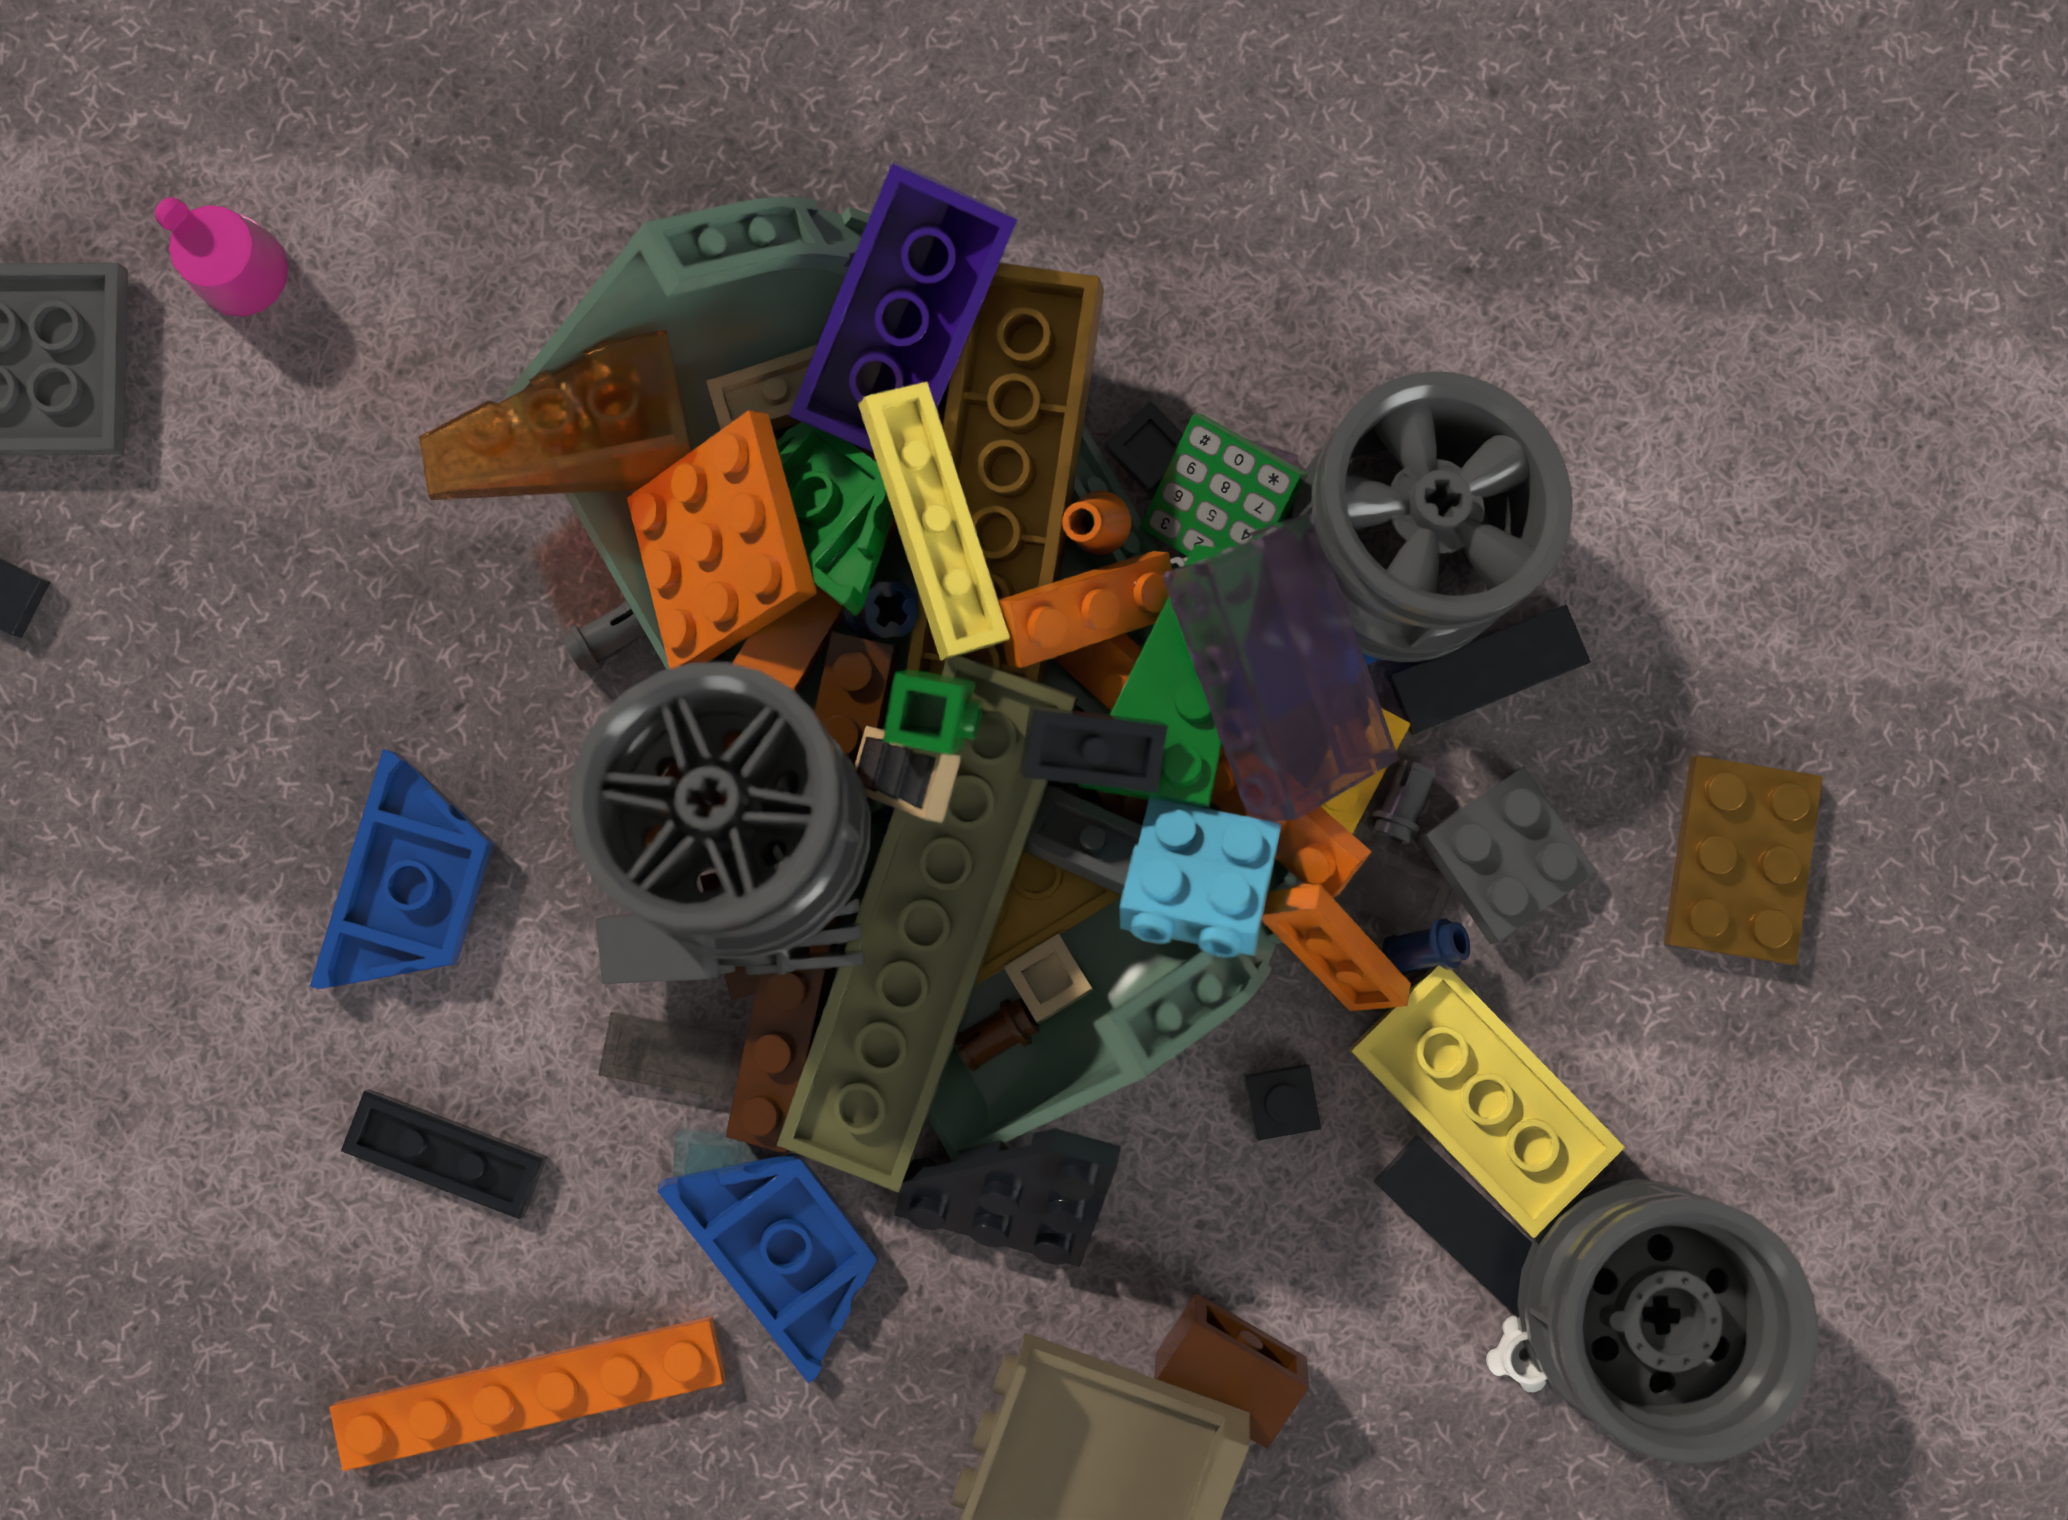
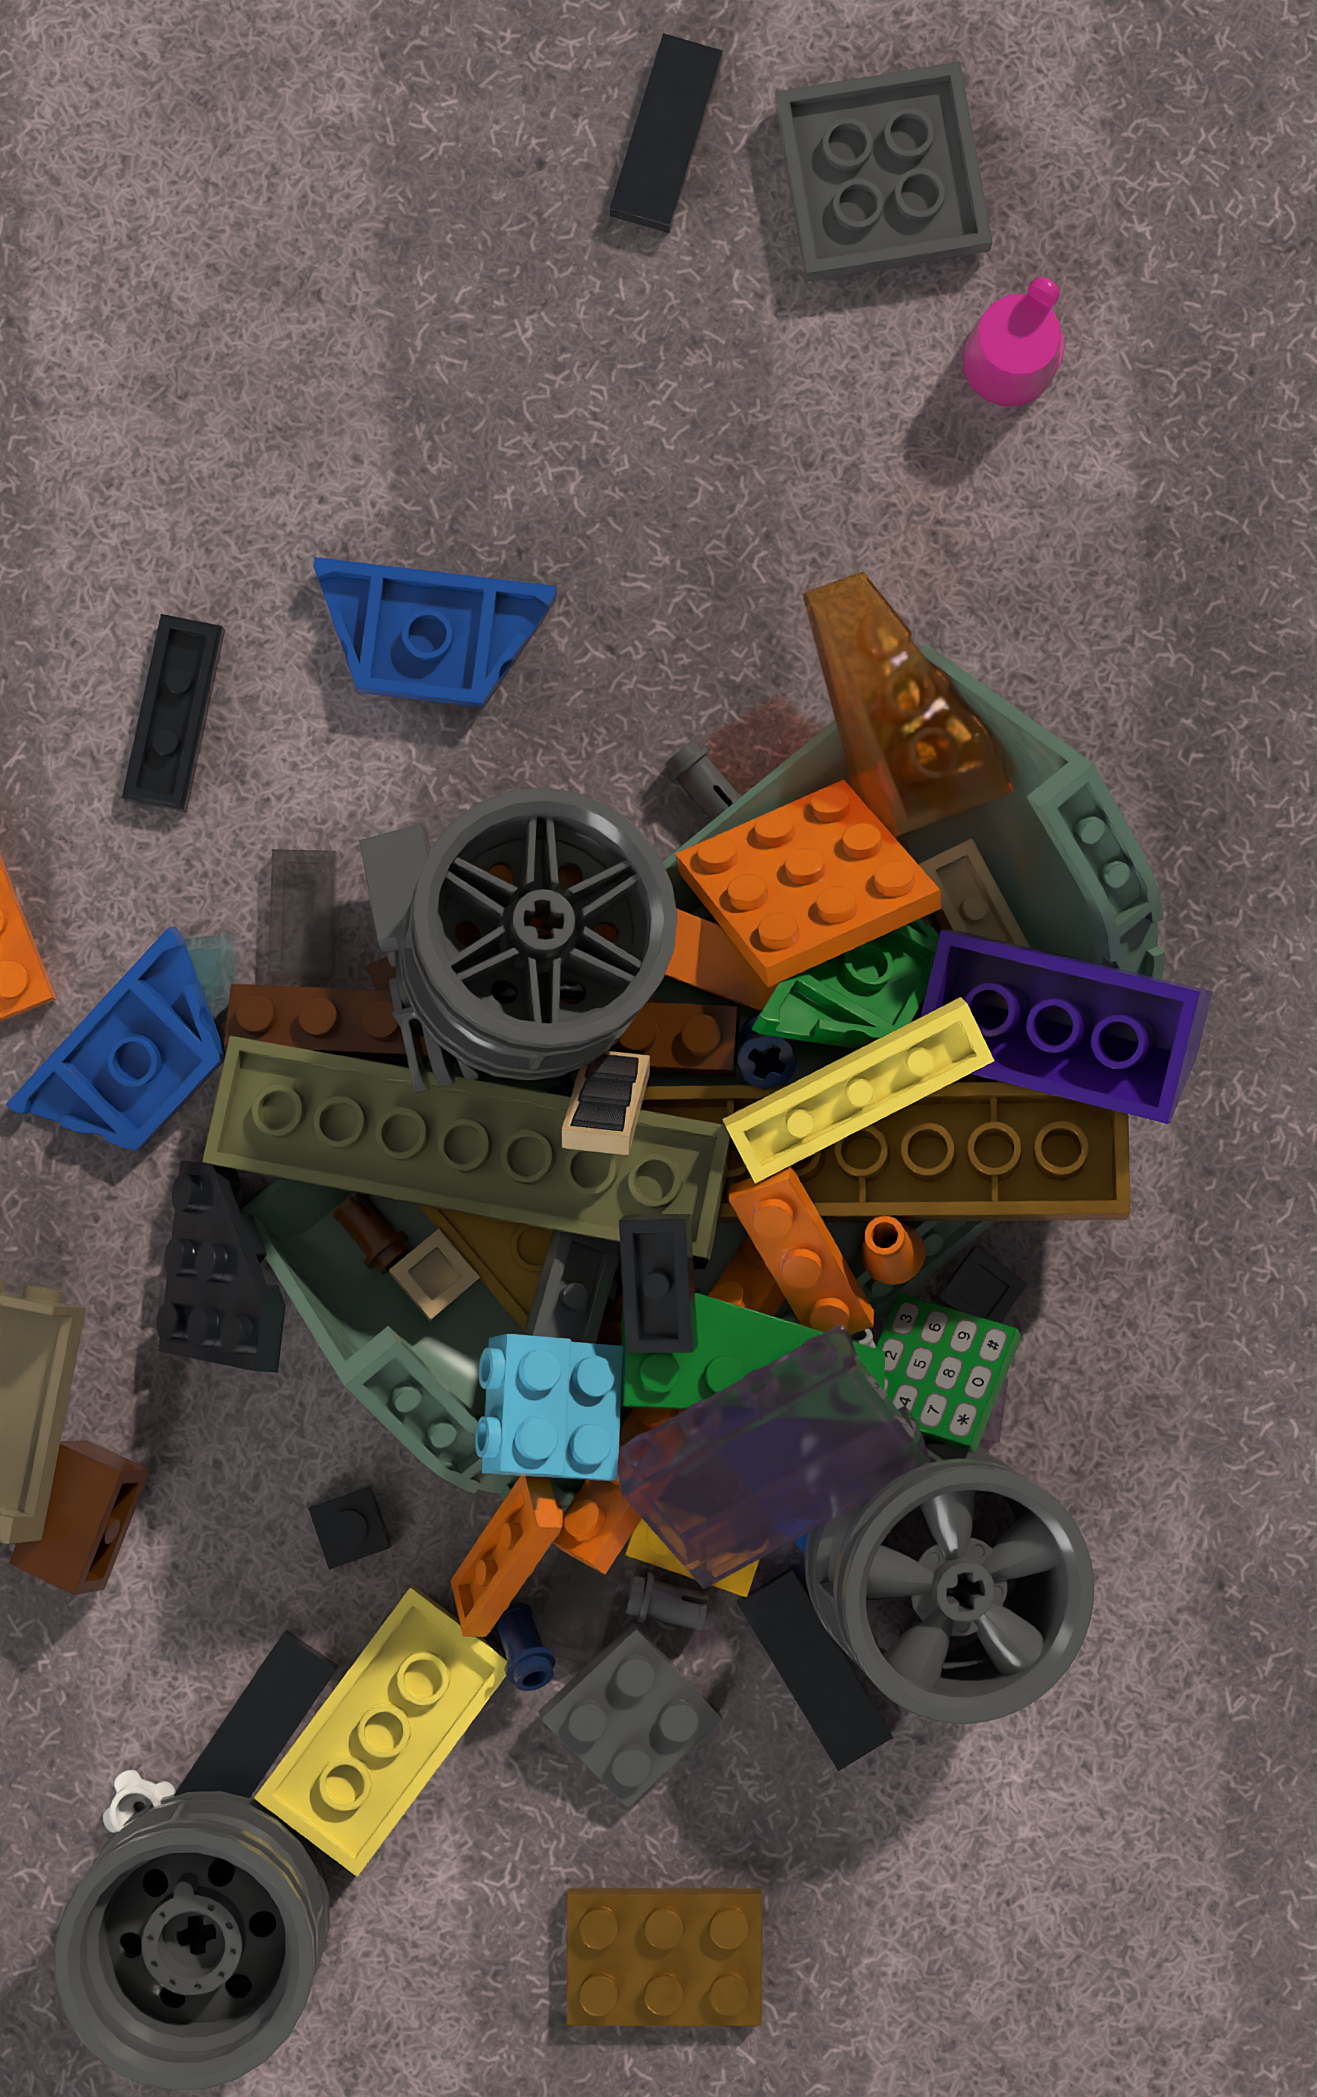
camera: 80 degrees right, 0 degrees up
(932, 712) = (667, 1120): green brick -> none

